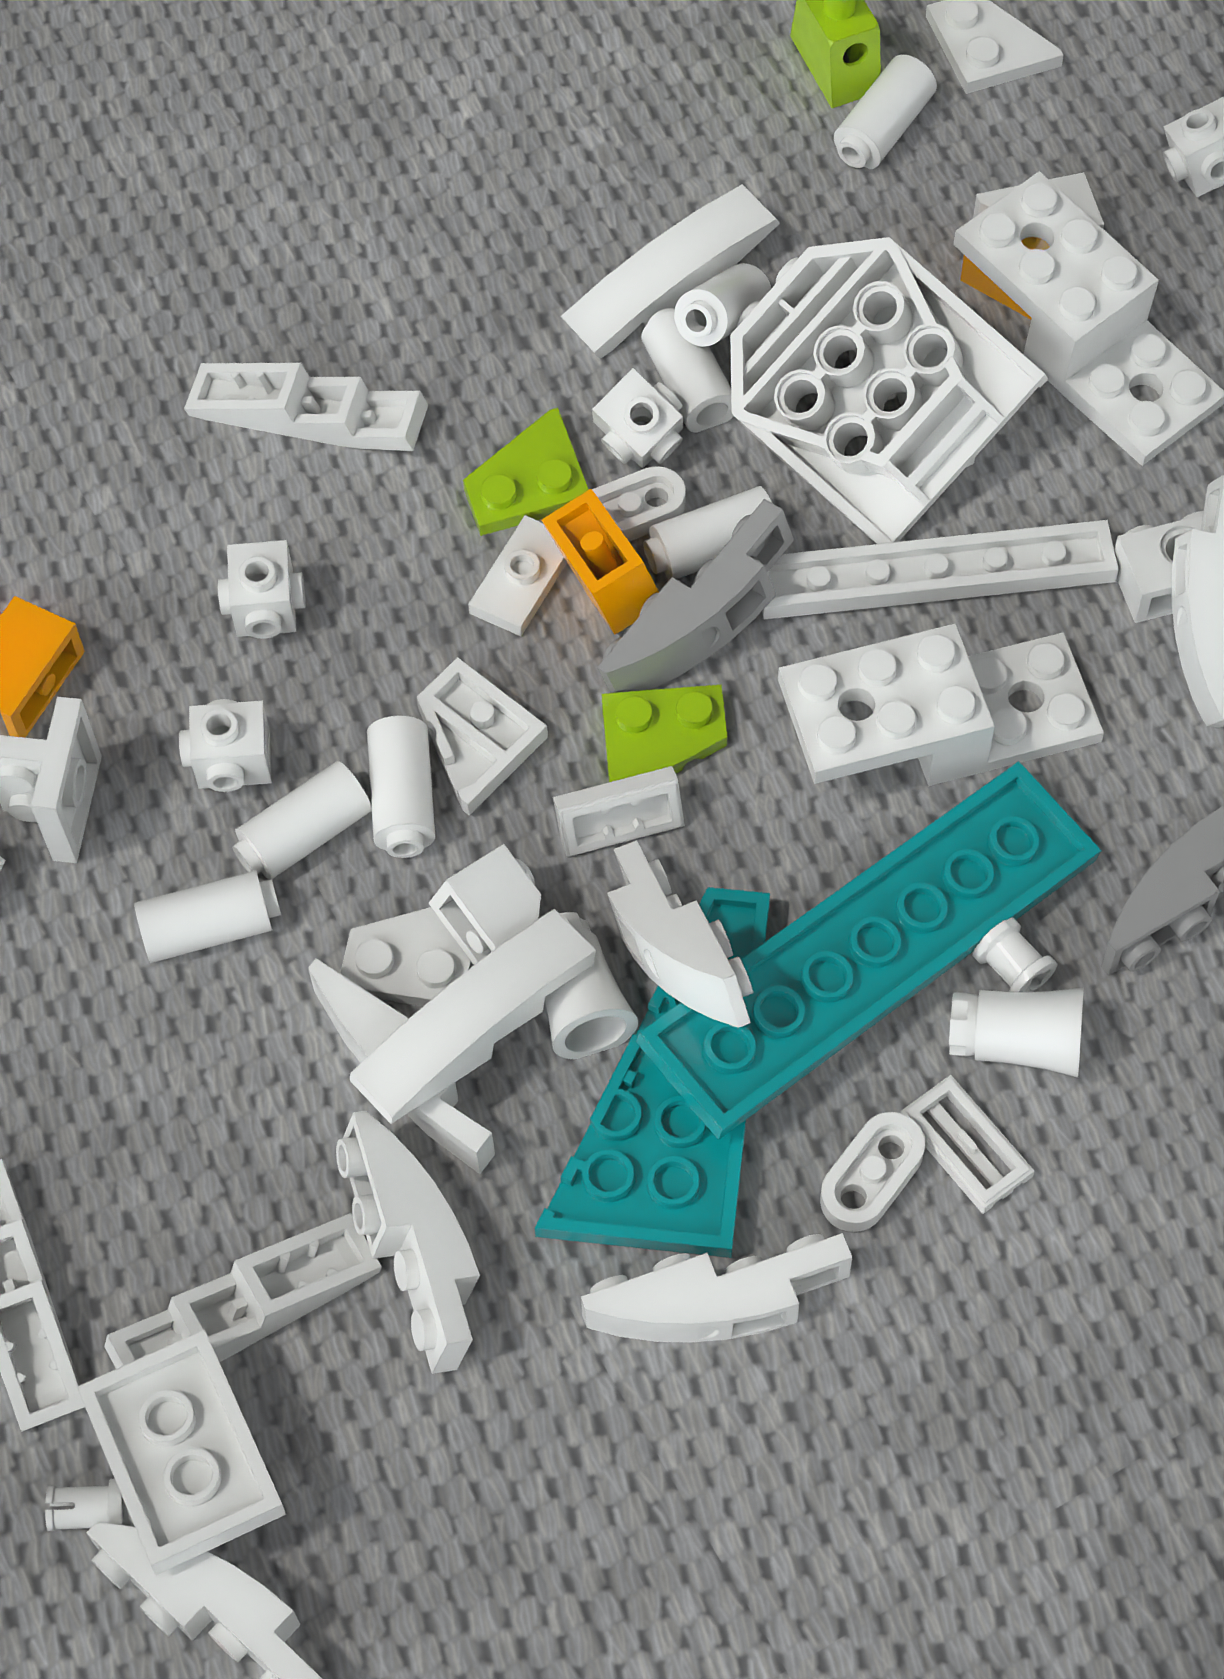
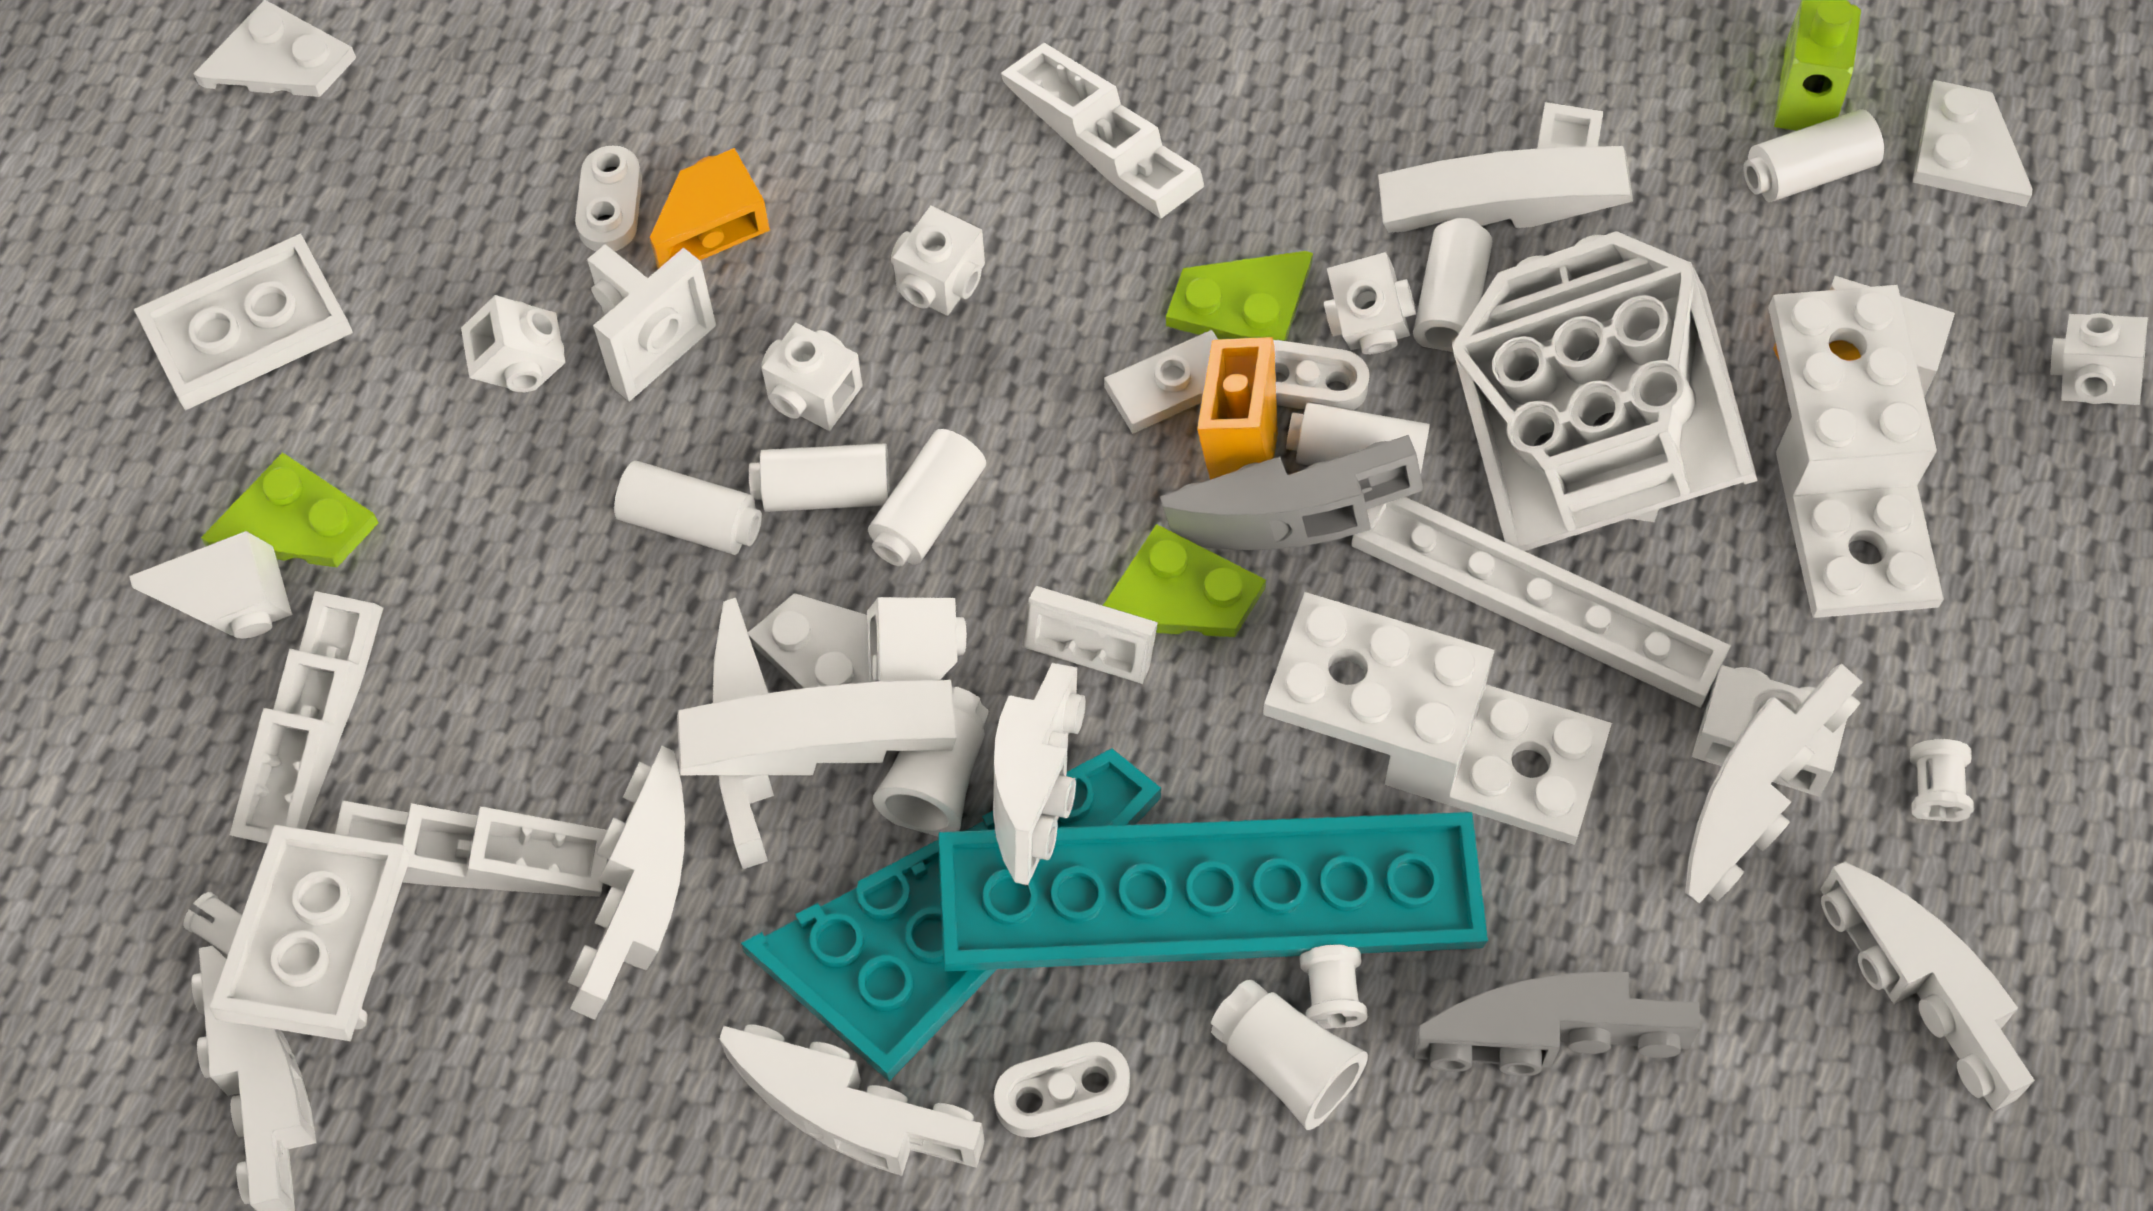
camera: 35 degrees right, 0 degrees up
(477, 732) = (1025, 493): white wing -> none
(681, 195) = (1569, 126): none -> white plate
(715, 306) = (1501, 239): white brick -> none
(1000, 1185) = (1169, 1179): white tile -> none

